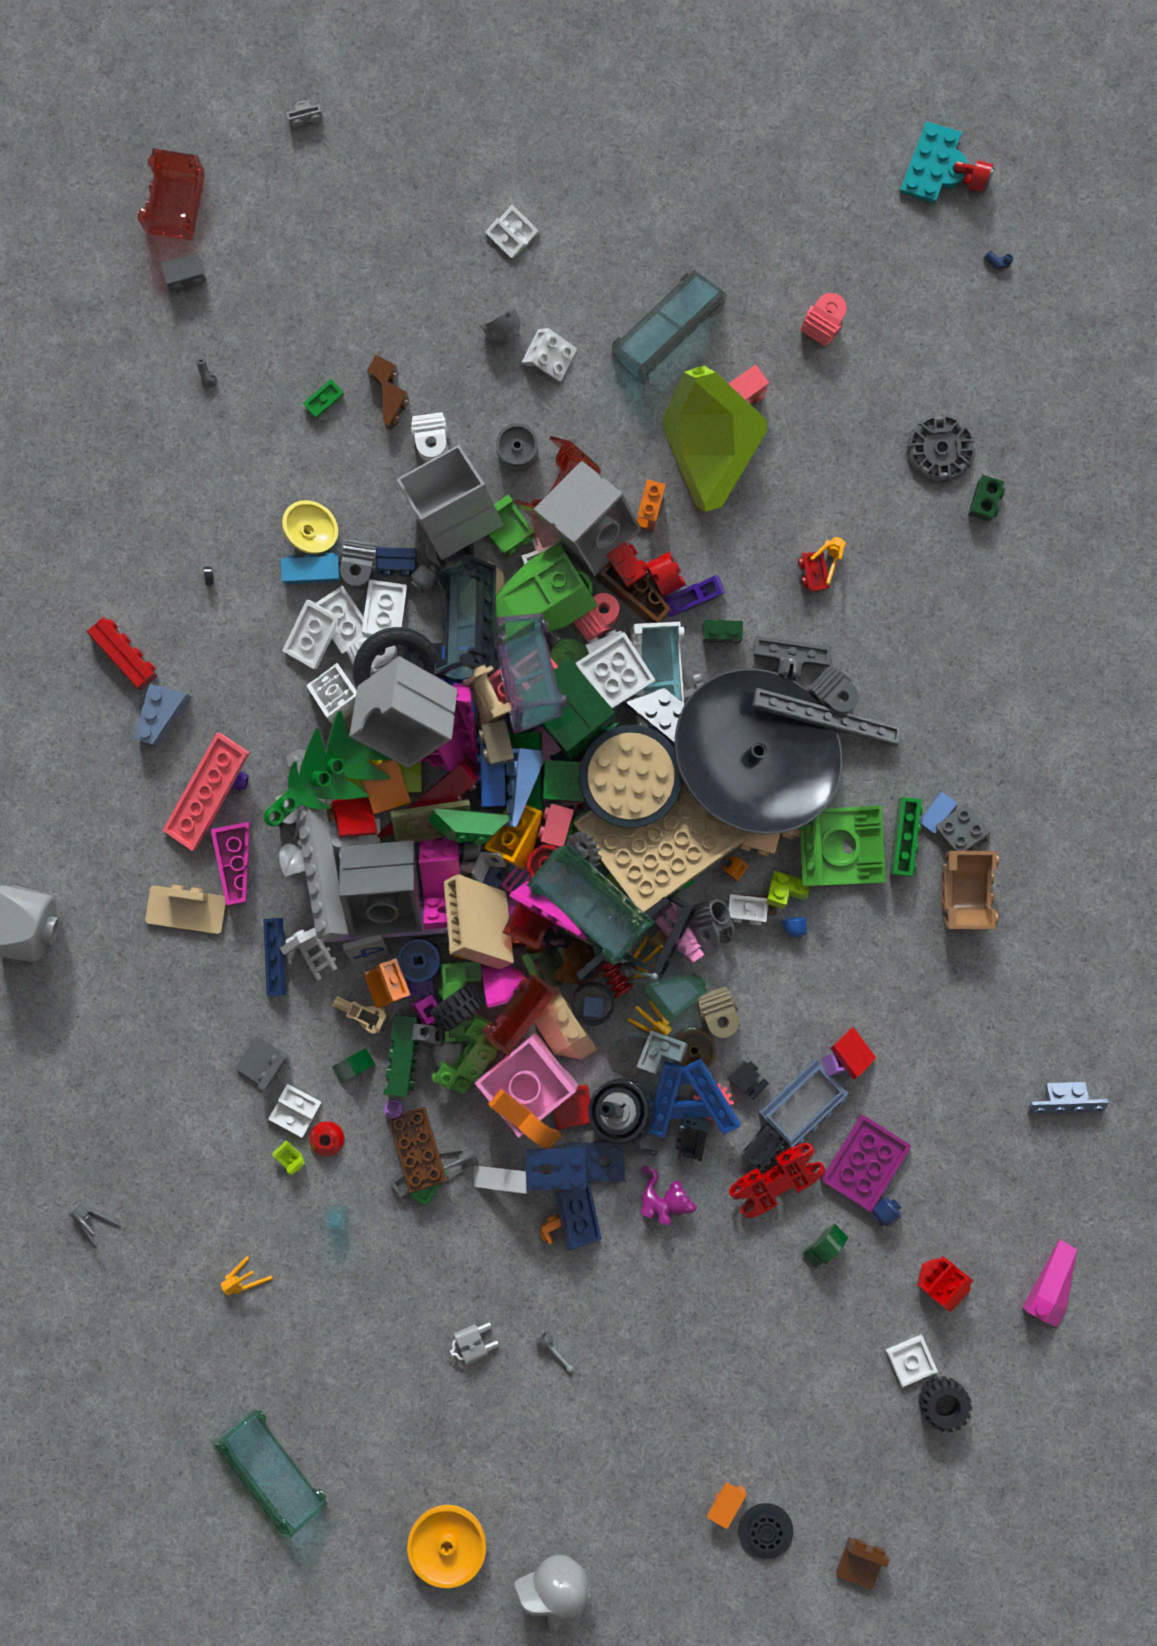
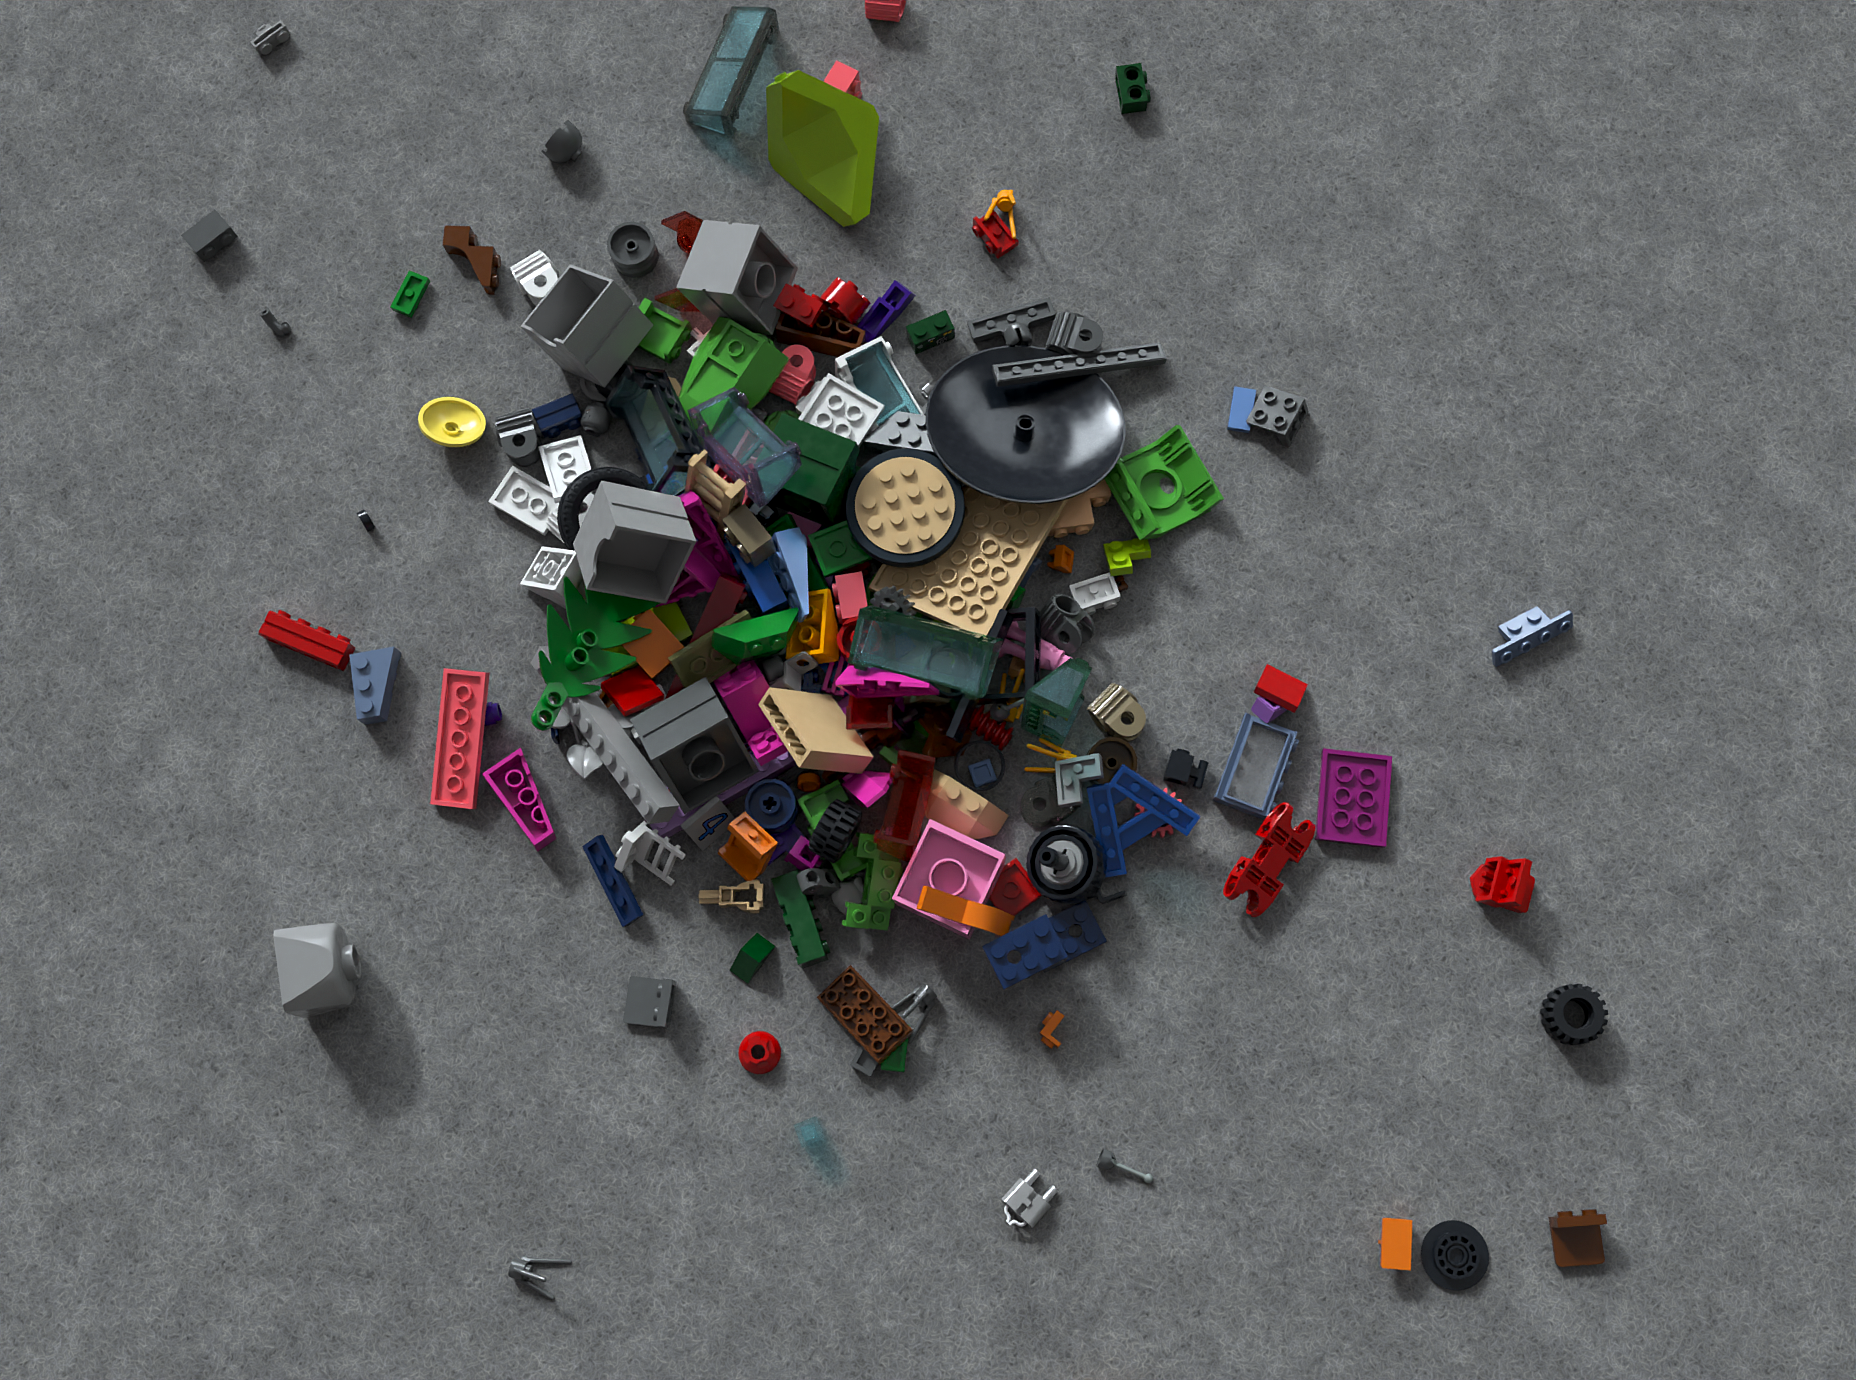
camera: 20 degrees left, 10 degrees down
(173, 194) = (166, 166): clear red windscreen -> none
(185, 909) = (492, 875): tan bracket -> none
(233, 1283) = (727, 1264): light orange plant -> none
(289, 1157) = (727, 1091): lime bracket -> none
(294, 1111) = (710, 1038): white slope -> none
(310, 569) = (472, 465): dark azure brick -> none
(311, 634) = (501, 527): white plate -> none
(393, 1109) = (817, 983): medium lavender plate -> none
(500, 1179) = (970, 998): white sticker -> none
(512, 231) = (532, 54): white slope -> none
(549, 353) = (624, 148): white bracket -> none
(578, 1217) = (1074, 1001): dark blue tile -> none
(650, 504) = (796, 240): orange panel -> none
(675, 1199) = (1171, 934): magenta animal -> none
(692, 1138) = (1156, 857): black hinge -> none
(763, 1147) = (1237, 833): black hinge -> none
(795, 926) = (1153, 590): blue piece -> none
(826, 1247) = (1357, 906): dark green brick -> none
(887, 1212) = (1403, 838): dark blue head -> none
(905, 836) = (1221, 445): green brick -> none
(911, 1360) = (1513, 987): white tile -> none
(933, 456) = (1062, 74): dark grey plate -> none
(967, 889) = (1309, 463): medium nougat cylinder -> none
(1051, 1291) = (1619, 836): dark pink wedge -> none

